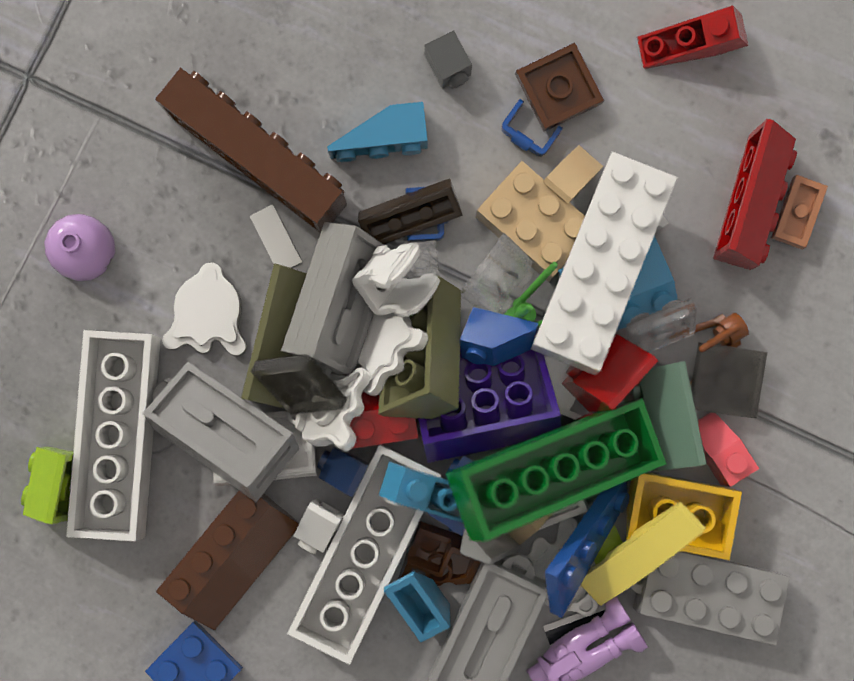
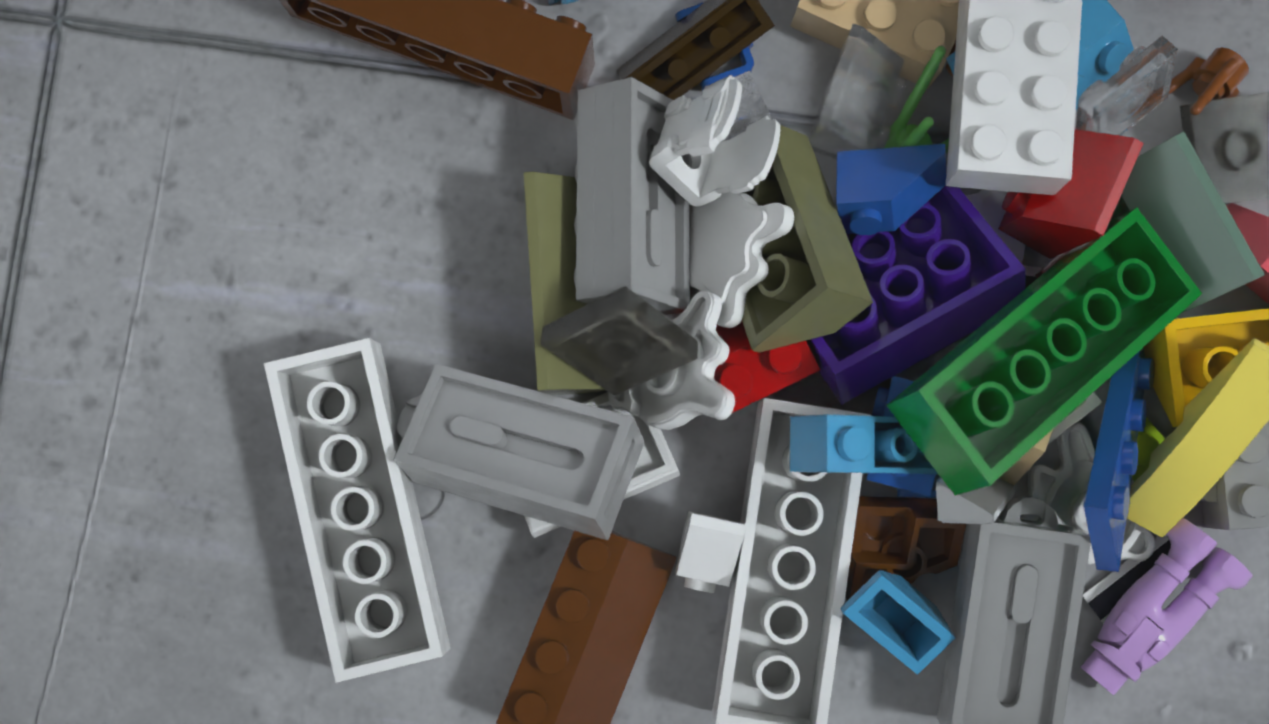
camera: 20 degrees left, 0 degrees up
(49, 485) = (284, 614): lime slope -> none
(79, 247) = (216, 246): lavender cylinder -> none
(206, 311) = (436, 286): white tile -> none
(275, 237) = (502, 143): white sticker -> none
(342, 470) = (719, 454): dark blue slope -> none

